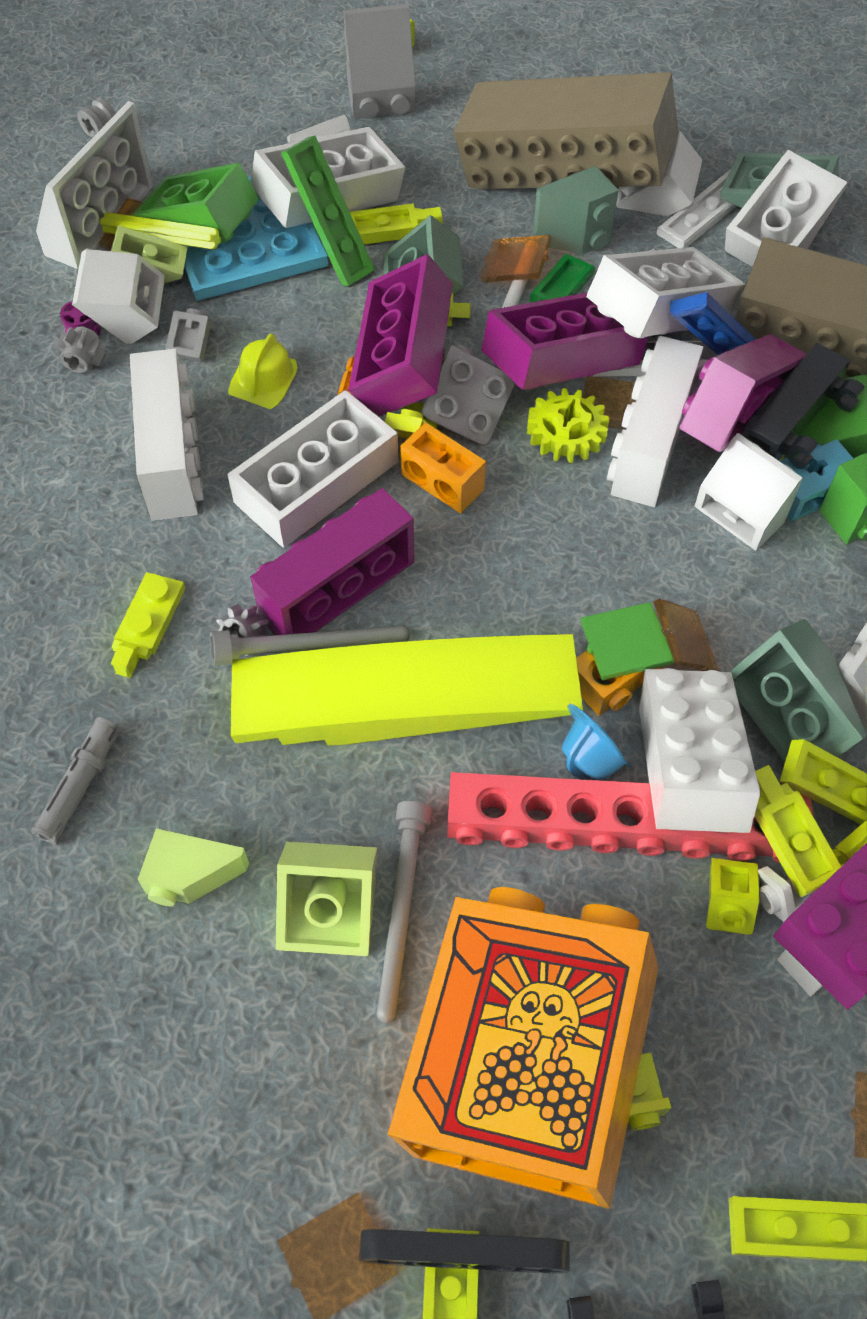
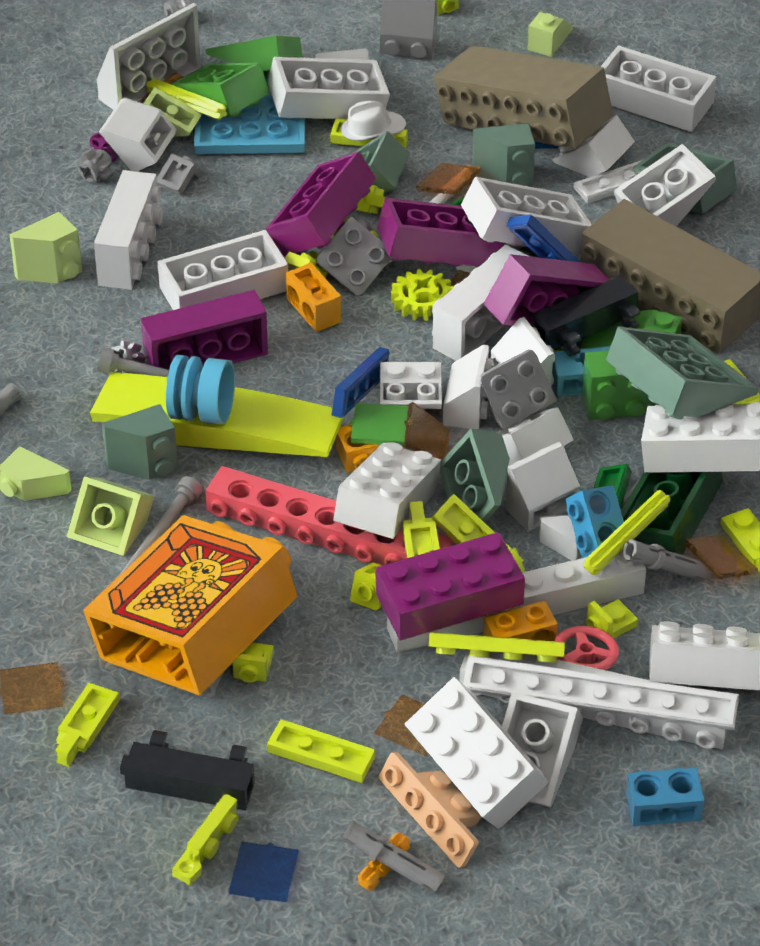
camera: 20 degrees right, 15 degrees down
(70, 494) = (46, 250): none -> yellowish green slope
(145, 621) = (66, 341): neon yellow hinge -> none
(222, 149) = (258, 51): none -> bright green slope
(263, 373) = (220, 211): neon yellow piece -> none
(328, 210) = (311, 110): bright green plate -> none
(328, 769) = (141, 443): none -> sand green slope
(386, 674) = (200, 389): none -> medium azure wheel
(394, 207) = (371, 120): none -> white piece
(464, 1251) = (71, 678): black beam -> none
(532, 52) = (547, 33): none -> yellowish green slope
(572, 586) = (359, 383): none -> blue tile
(590, 749) = (319, 478): dark azure piece -> none
(629, 569) = (410, 383): none -> white slope
(702, 549) = (465, 395): none -> white slope
(707, 88) = (658, 88): none -> white brick
(778, 542) = (517, 389): none -> light grey bracket
(805, 588) = (535, 433): none -> white slope

